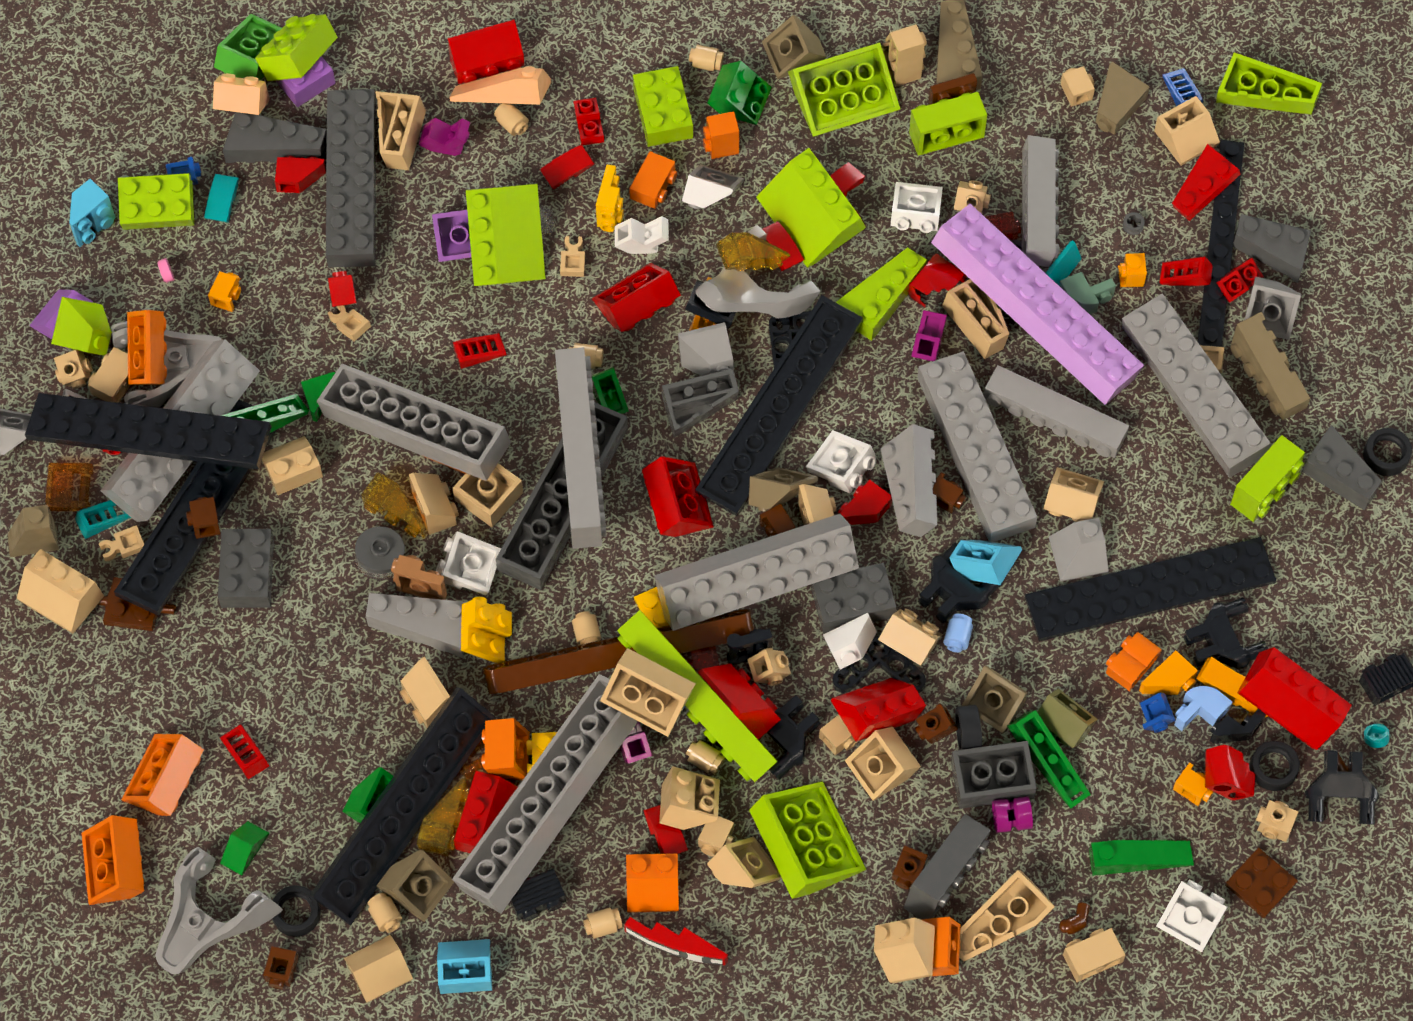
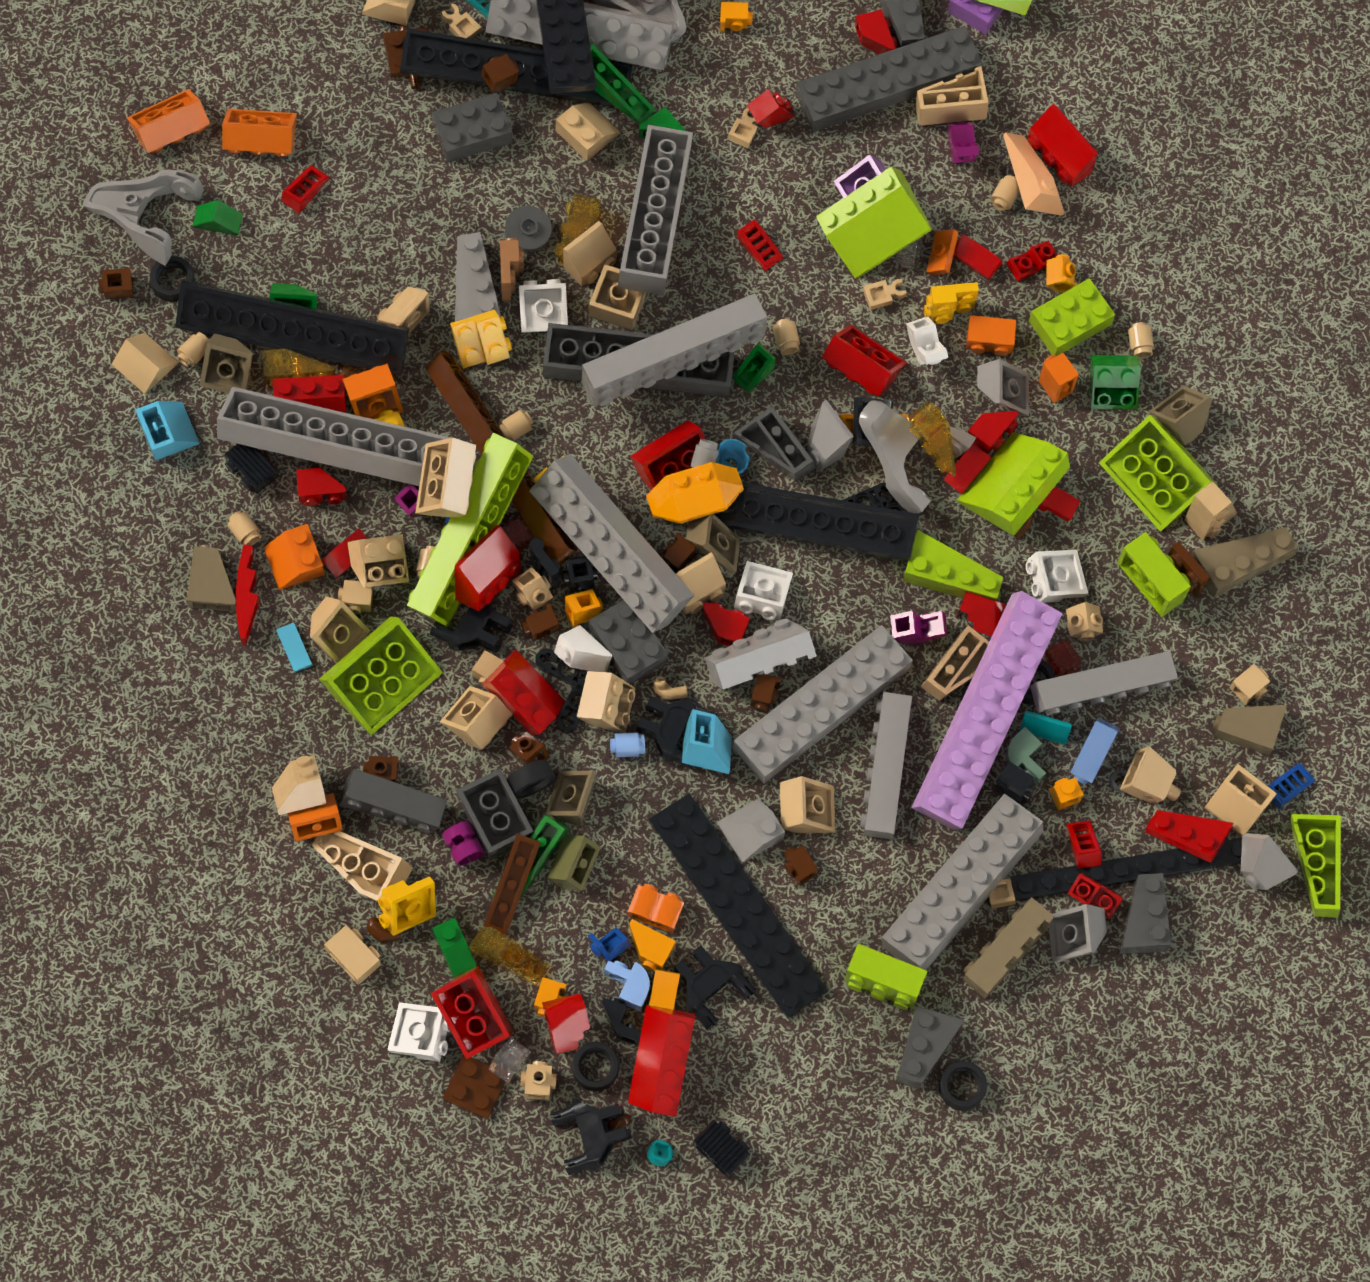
camera: 65 degrees right, 5 degrees up
(553, 193) = (942, 252): none -> orange plate
(582, 836) = (315, 483): none -> red slope
(614, 99) = (1061, 273): none -> light orange brick
(648, 972) = (209, 581): none -> dark tan slope
(690, 464) = (705, 452): none -> light grey brick
(691, 438) = (736, 451): none -> dark azure hair
(727, 486) = (695, 493): none -> light orange wedge
(747, 914) = (294, 647): none -> medium azure piece
(750, 210) = (991, 427): none -> red slope
(770, 616) = (579, 567): none -> black brick
(803, 628) = (582, 607): none -> light orange brick
(805, 671) = (540, 623): none -> reddish brown brick
(915, 581) = (668, 693): none -> tan arm
(1063, 884) = (407, 905): none -> yellow plate
(1071, 780) = (511, 883): none -> reddish brown plate
(1100, 231) = (1094, 751): none -> medium blue slope
(1113, 306) = (1015, 783): none -> black brick
(1130, 519) = (799, 865): none -> reddish brown brick
(1138, 809) = (509, 955): none -> clear yellow slope
(1141, 195) = (1150, 777): none -> tan torso
(1192, 856) = (472, 1012): none -> red slope
(1248, 839) = (509, 1060): none -> clear brick
(1256, 129) = (1264, 862): none -> light grey slope

